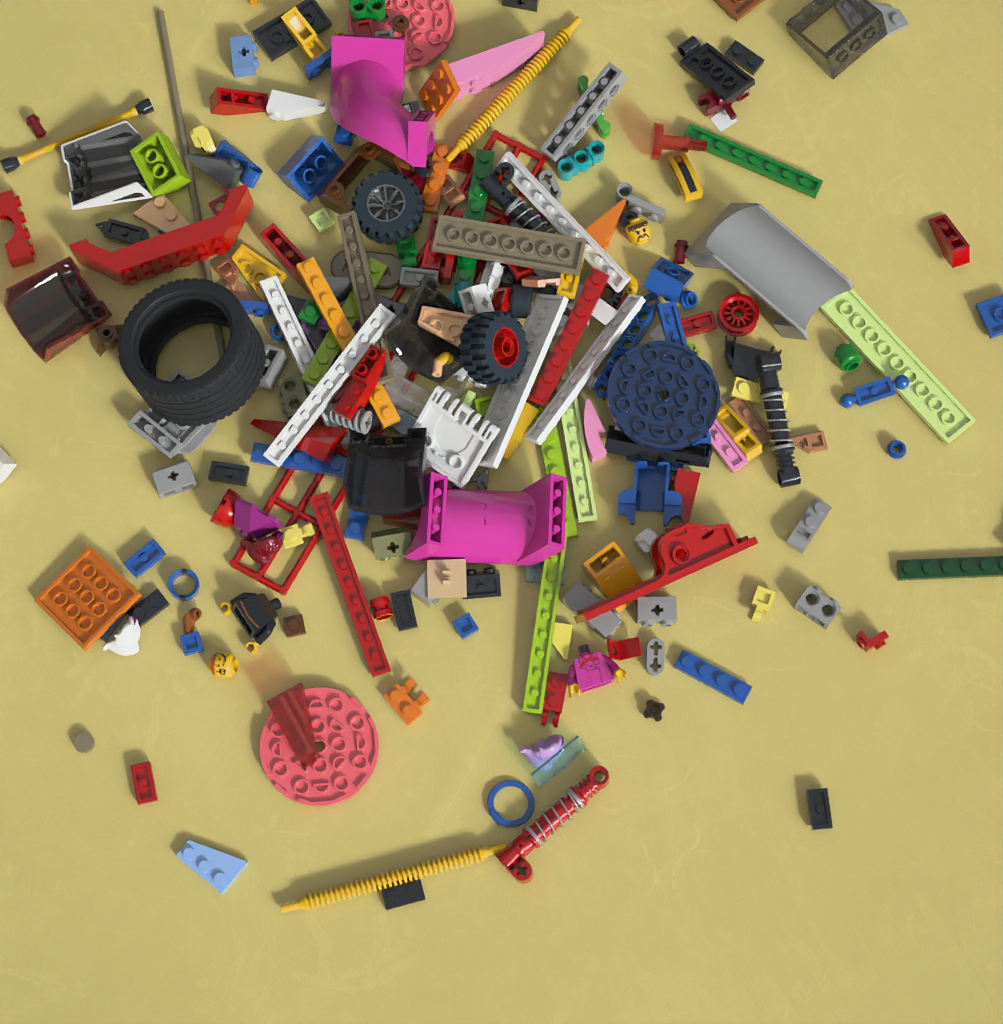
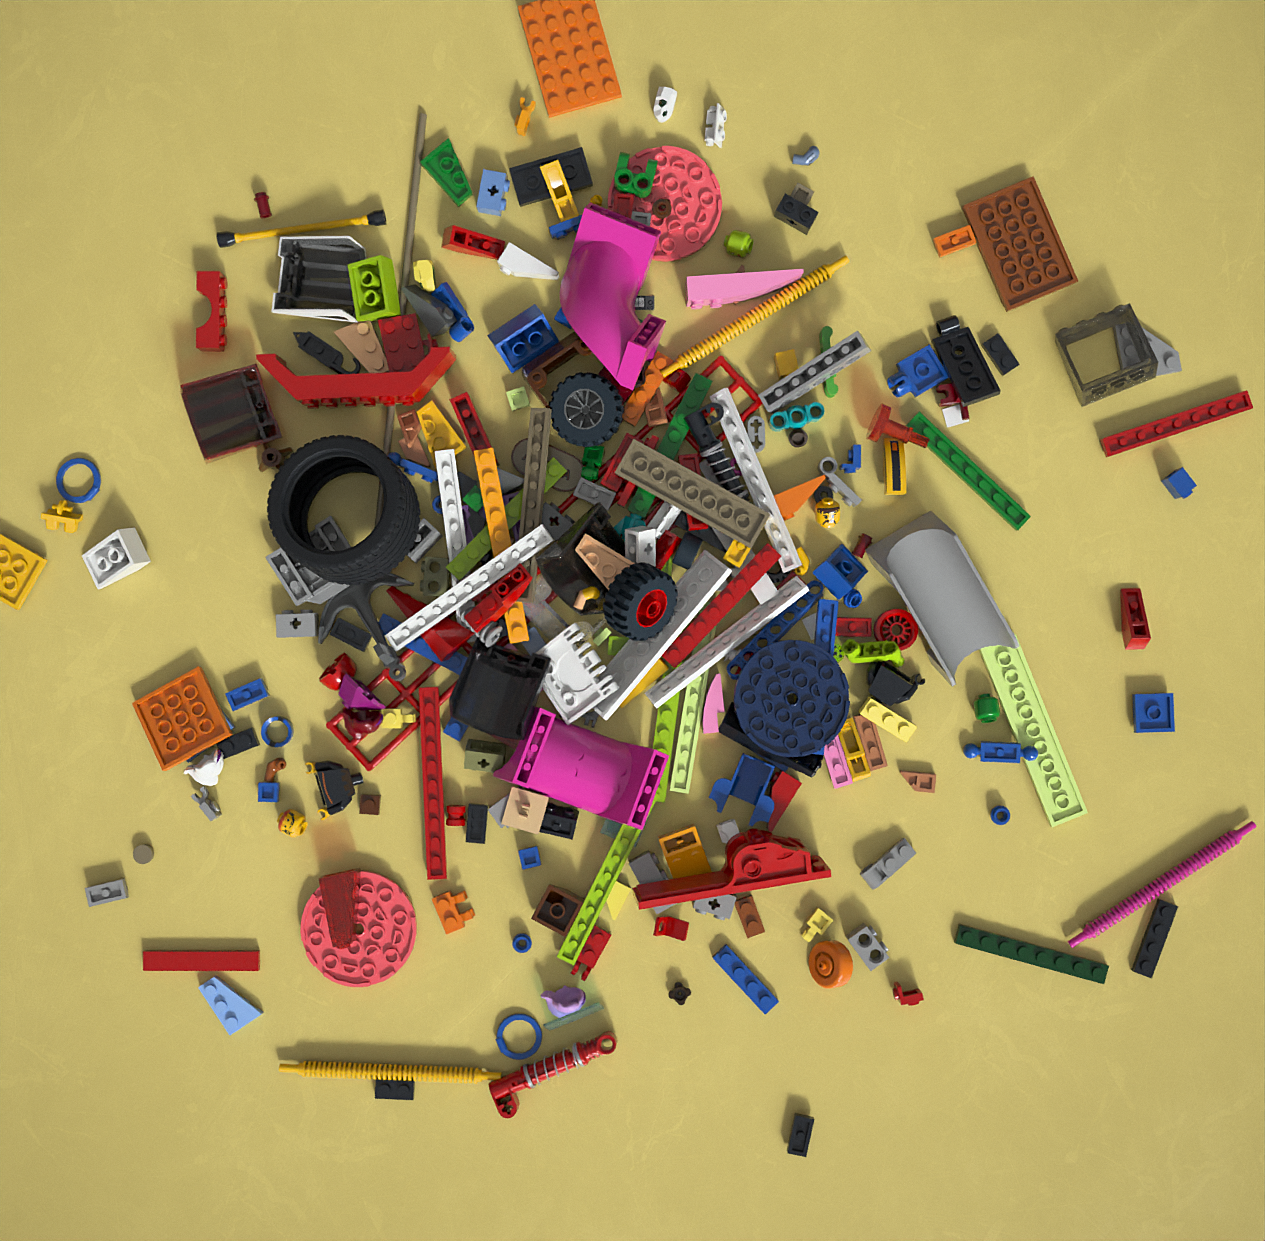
camera: 20 degrees right, 15 degrees up
(57, 790) = (106, 892): none -> light grey plate
(139, 676) = (210, 808): none -> light grey plate
(144, 783) = (187, 910): red plate -> none
(171, 829) = (201, 960): none -> red tile
(195, 50) = (446, 171): none -> green wing
(197, 199) = (402, 342): none -> red plate
(226, 437) = (359, 599): none -> dark grey piece
(439, 89) = (677, 299): orange plate -> none
(478, 33) = (738, 243): none -> lime head
(484, 704) = (522, 949): none -> blue plate
(508, 662) = (558, 909): none -> reddish brown slope
(540, 281) = (710, 540): nougat tile -> none
(553, 116) = (785, 363): none -> yellow brick
(588, 178) = (798, 437): none -> dark brown plate
(592, 671) = (633, 940): dark pink torso -> none
(646, 181) = (854, 456): none -> blue bracket
(650, 657) = (694, 941): light grey beam -> none
(676, 93) = (917, 373): none -> blue plate
(695, 616) = (749, 916): none -> dark orange plate
(721, 338) = (861, 652): none -> lime beam
(771, 394) = (904, 704): black piece -> none
(788, 633) = (830, 964): none -> orange wheel
(921, 67) = (1176, 423): none -> red plate
(944, 115) = (1179, 483): none -> blue brick

